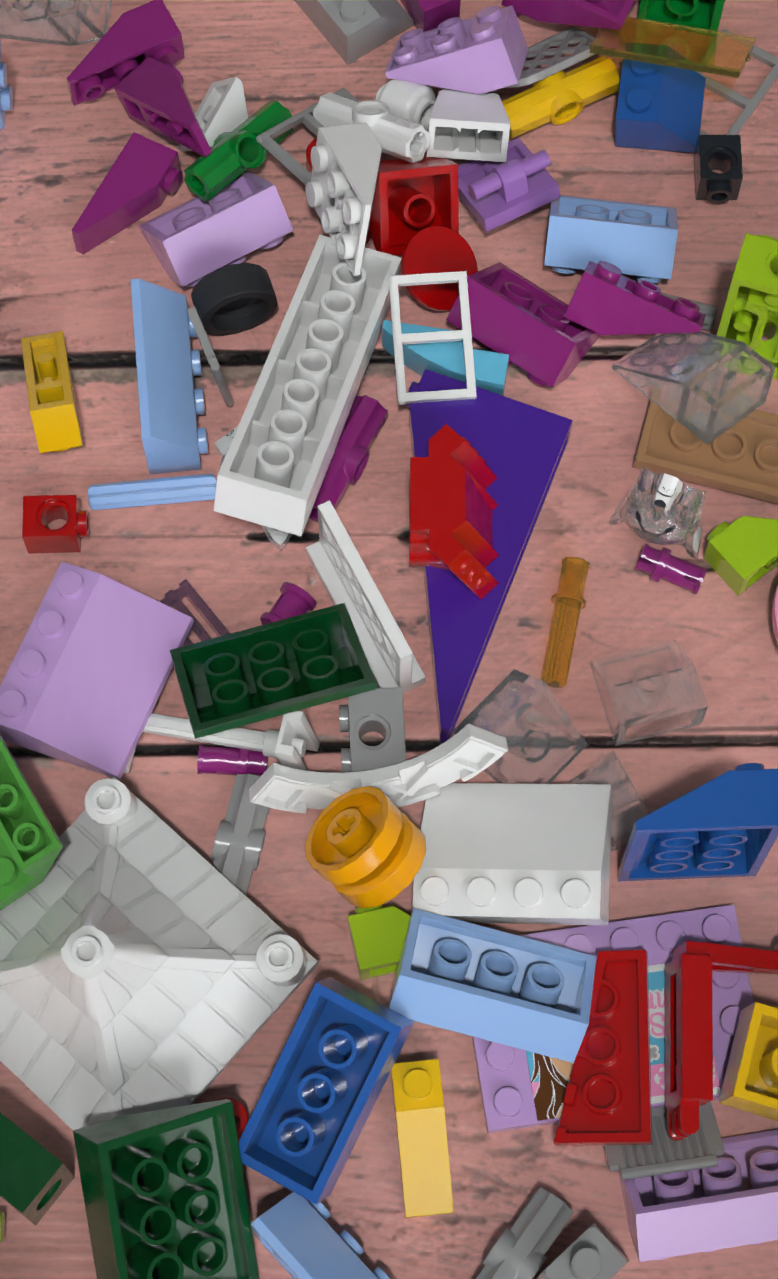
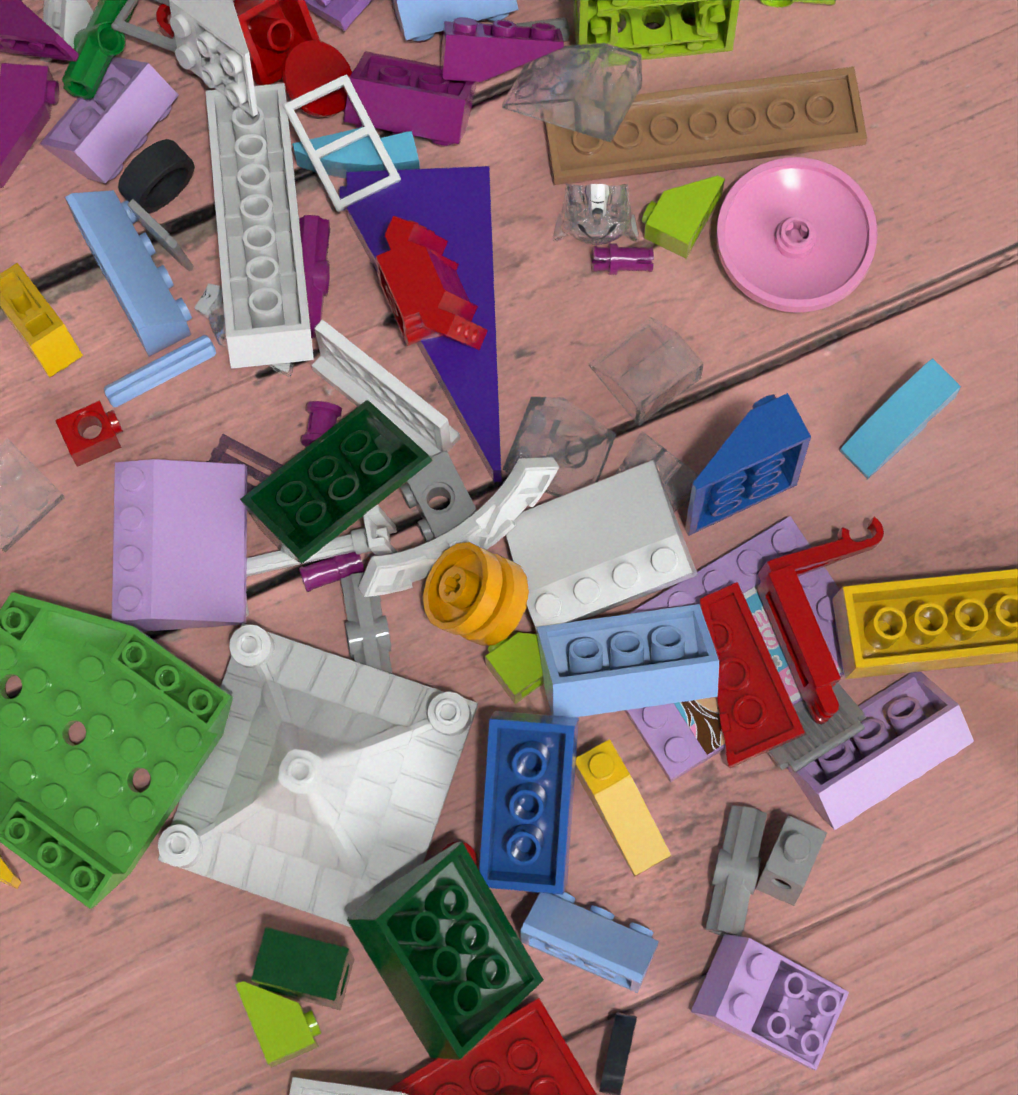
camera: 20 degrees left, 5 degrees up
(564, 621) = (551, 326): clear yellow axle -> none

